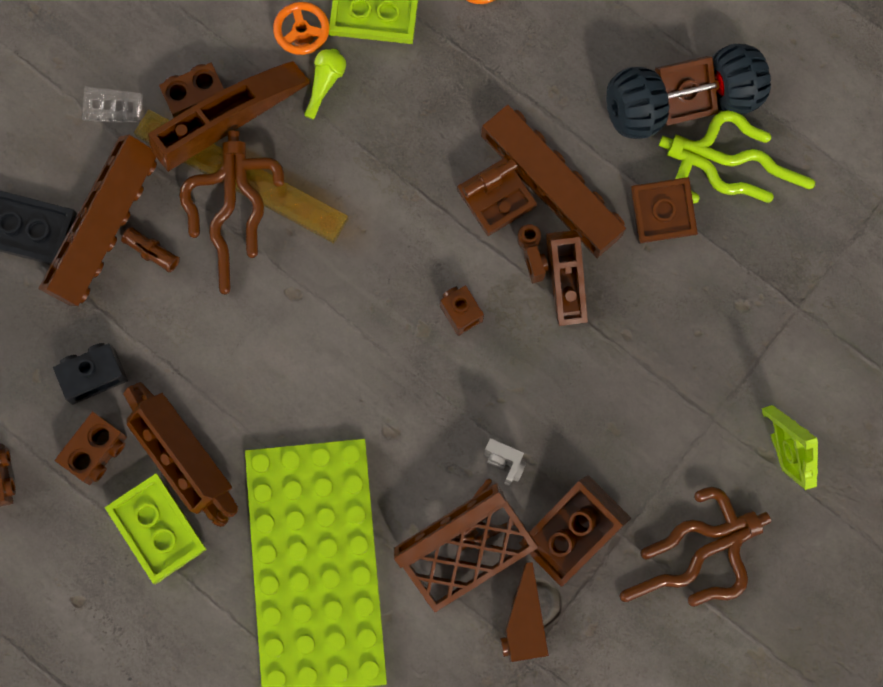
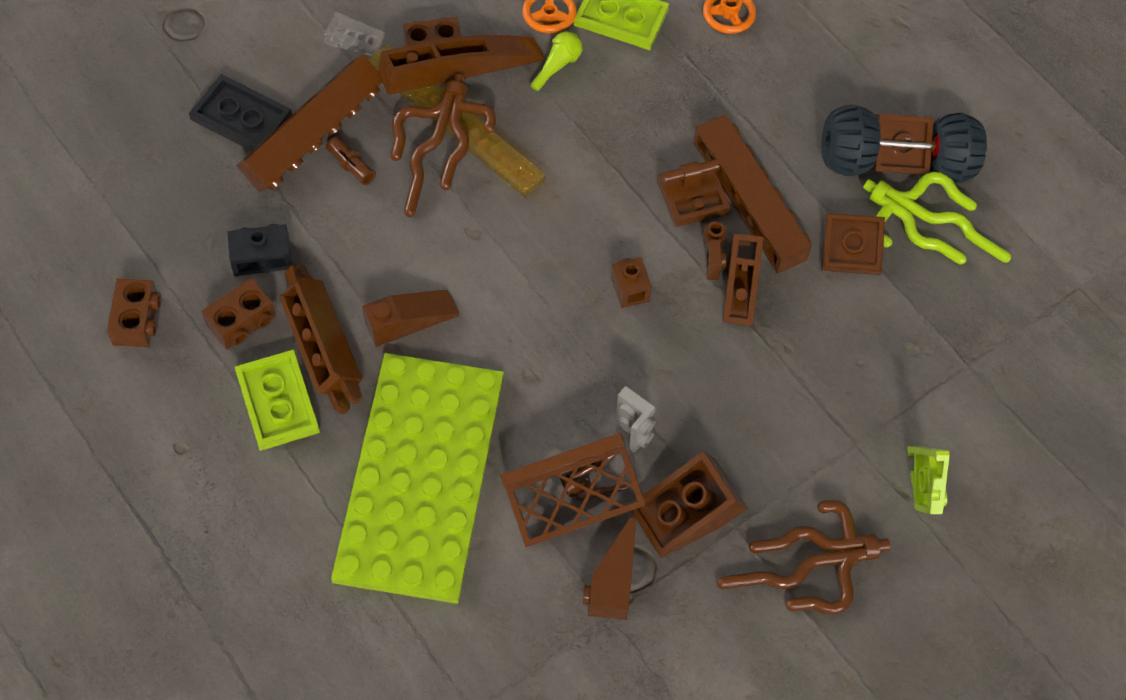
camera: 15 degrees right, 15 degrees down
(256, 402) = (406, 314): none -> reddish brown slope

